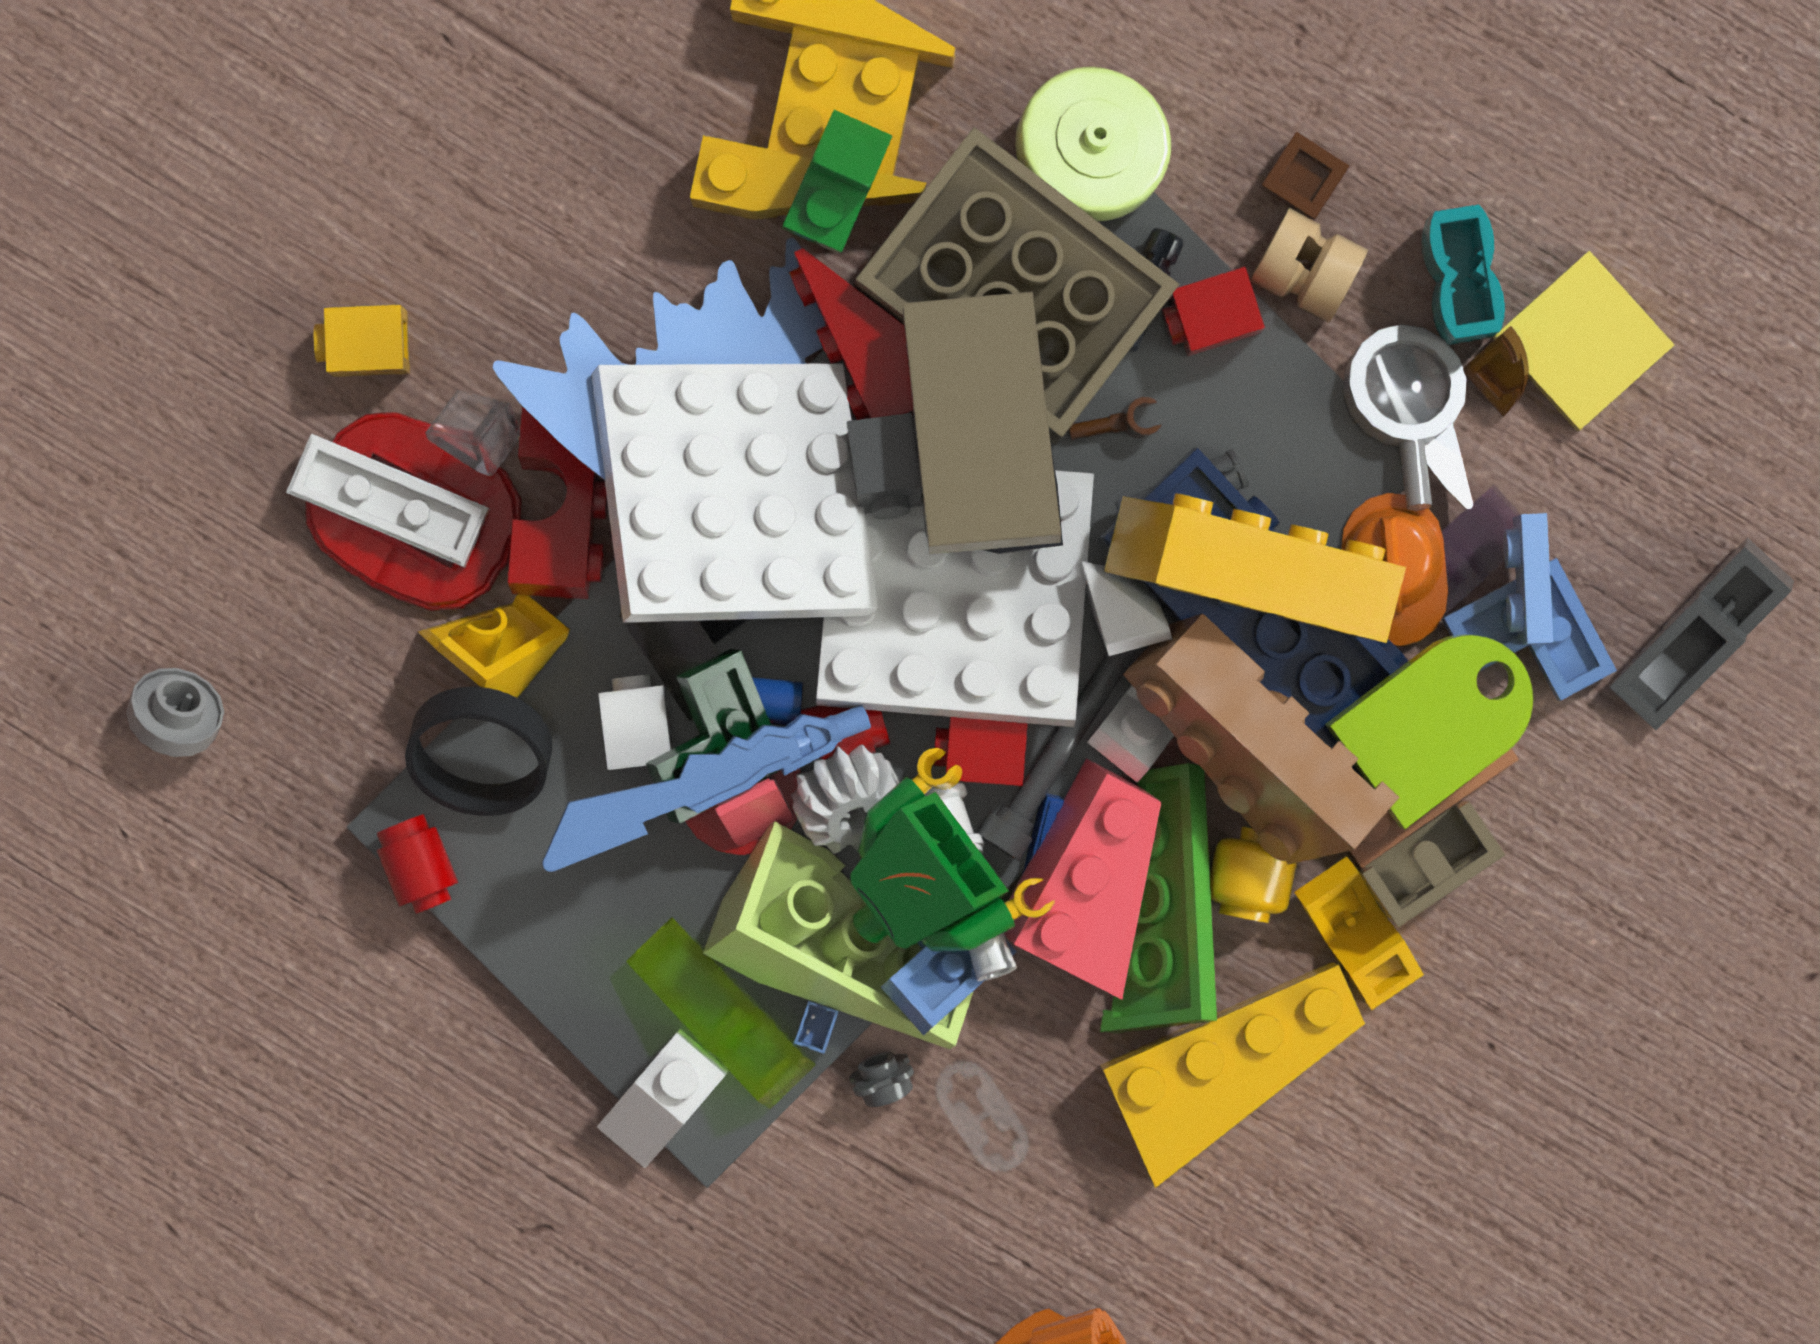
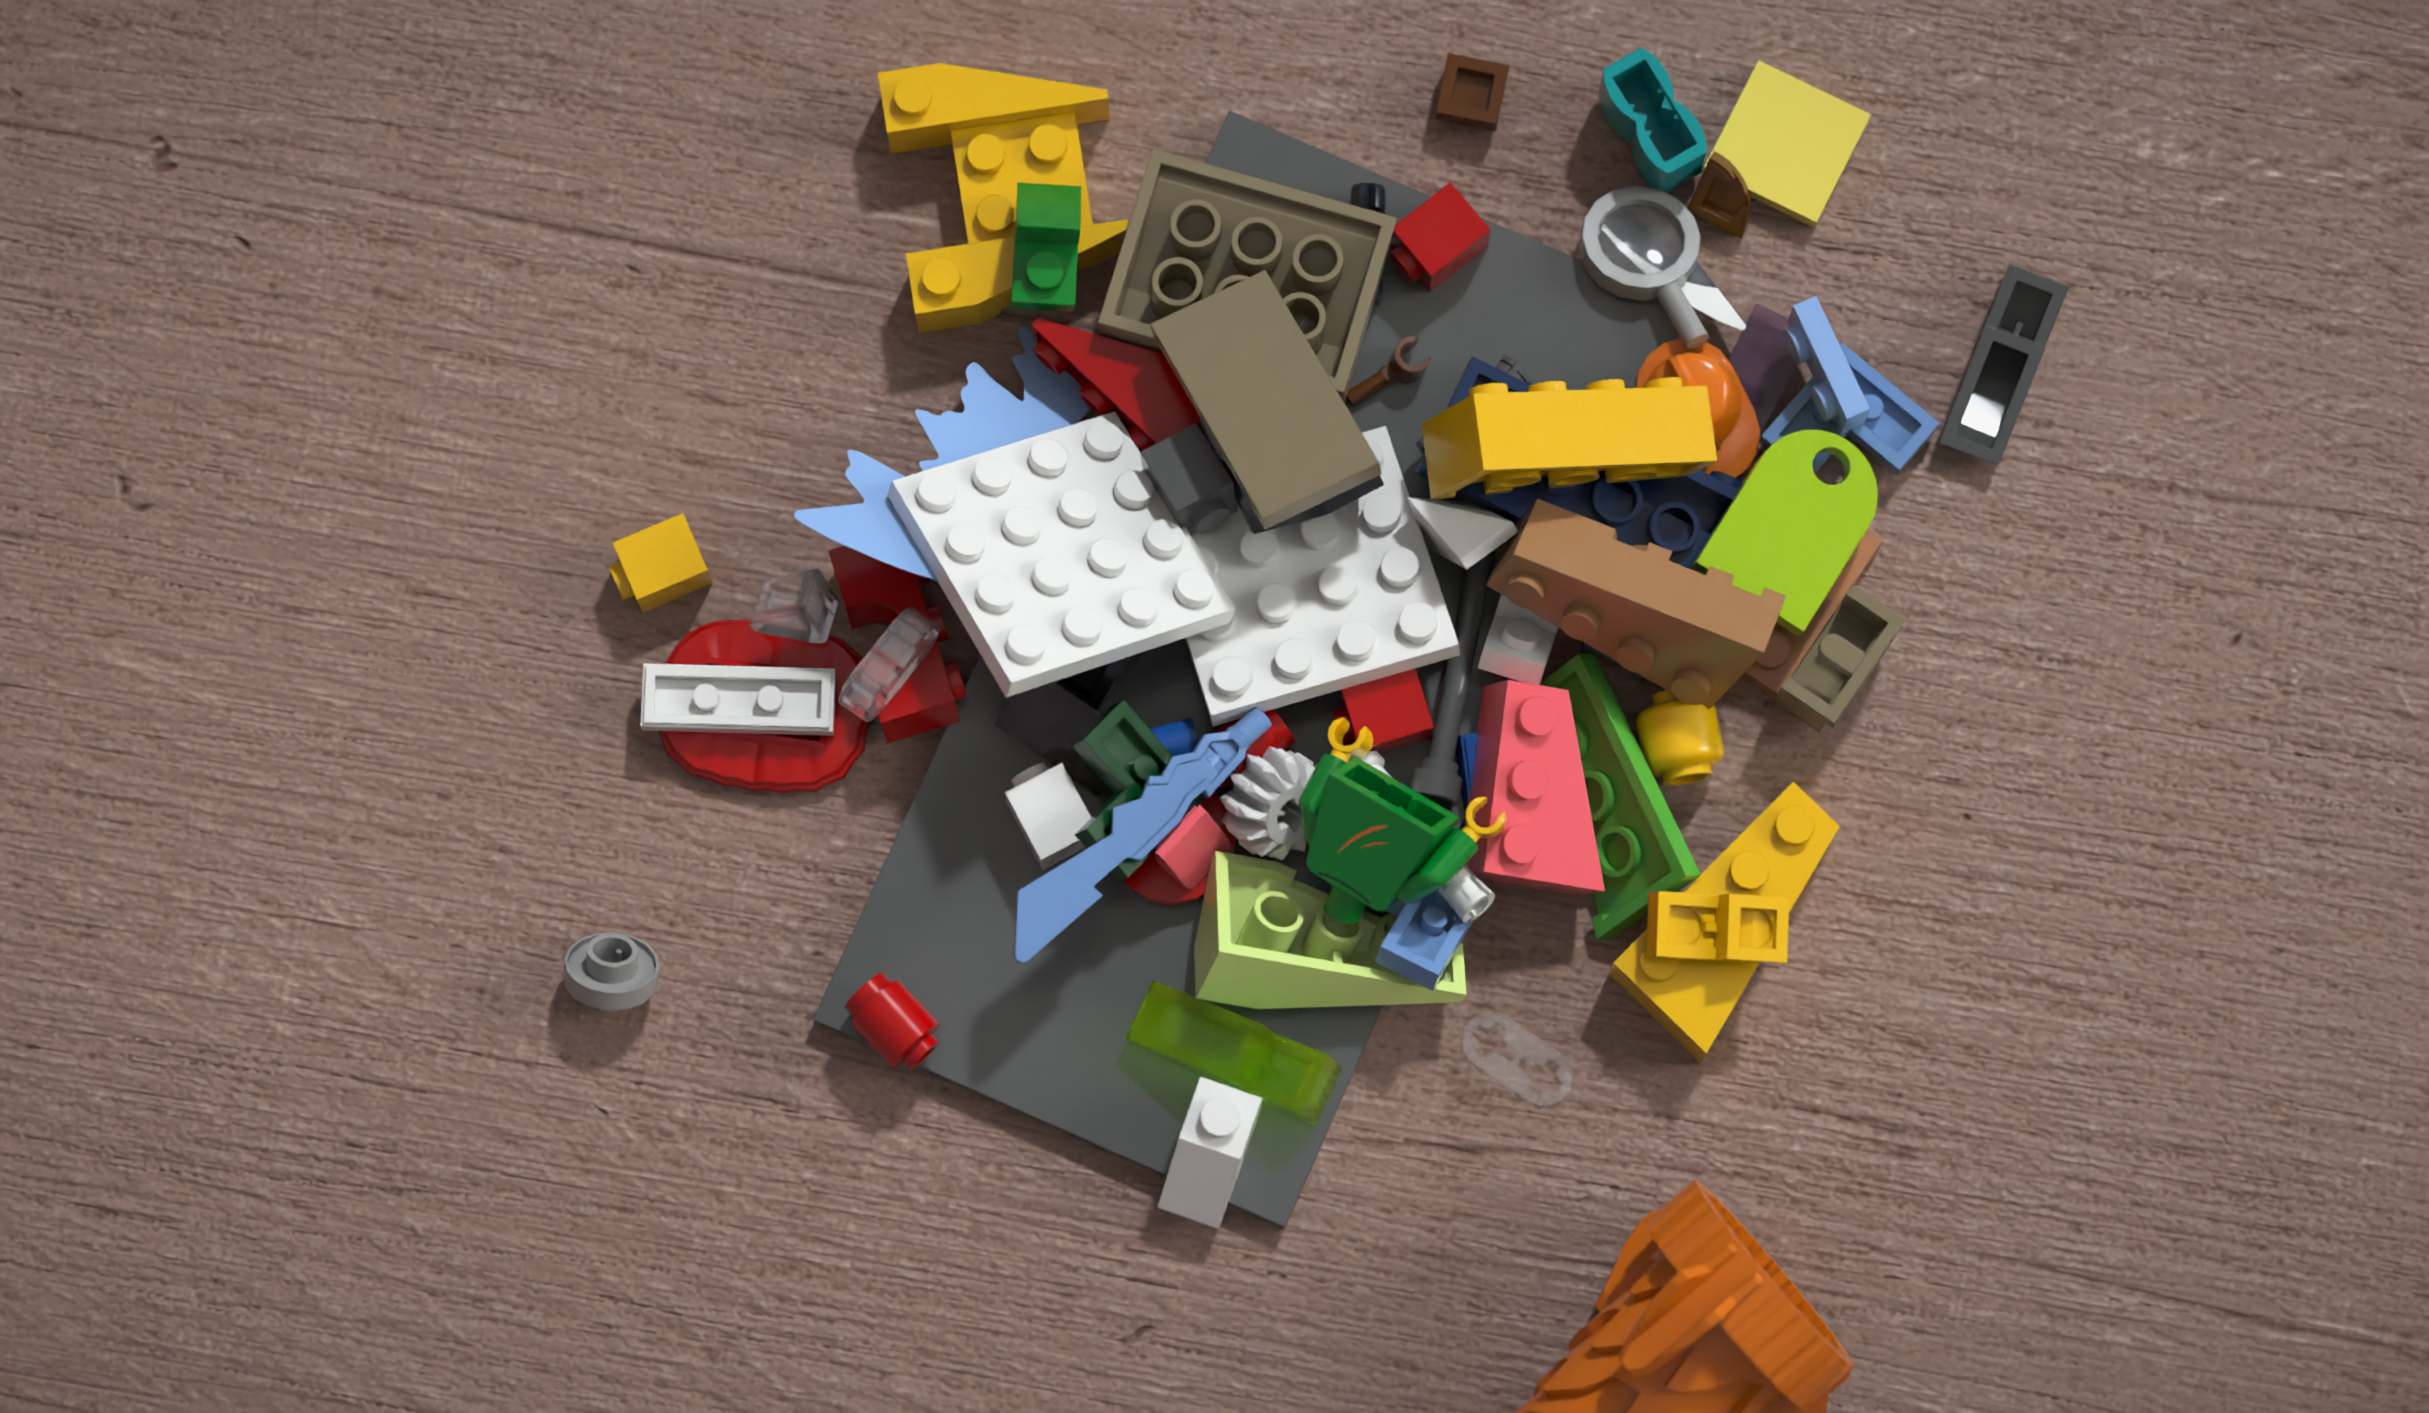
camera: 20 degrees left, 10 degrees down
(488, 706) = (921, 942): black tyre -> none
(501, 645) = (895, 796): yellow slope -> none
(533, 533) = (888, 664): none -> clear beam
(816, 1027) = (1329, 1030): medium blue piece -> none
(882, 1079) = (1410, 1059): dark grey plate -> none
(1096, 140) = (1269, 123): yellowish green wheel -> none
(1211, 1080) = (1717, 927): none -> yellow slope
(1330, 276) = (1508, 166): tan wheel -> none
(1358, 933) = (1793, 751): yellow slope -> none

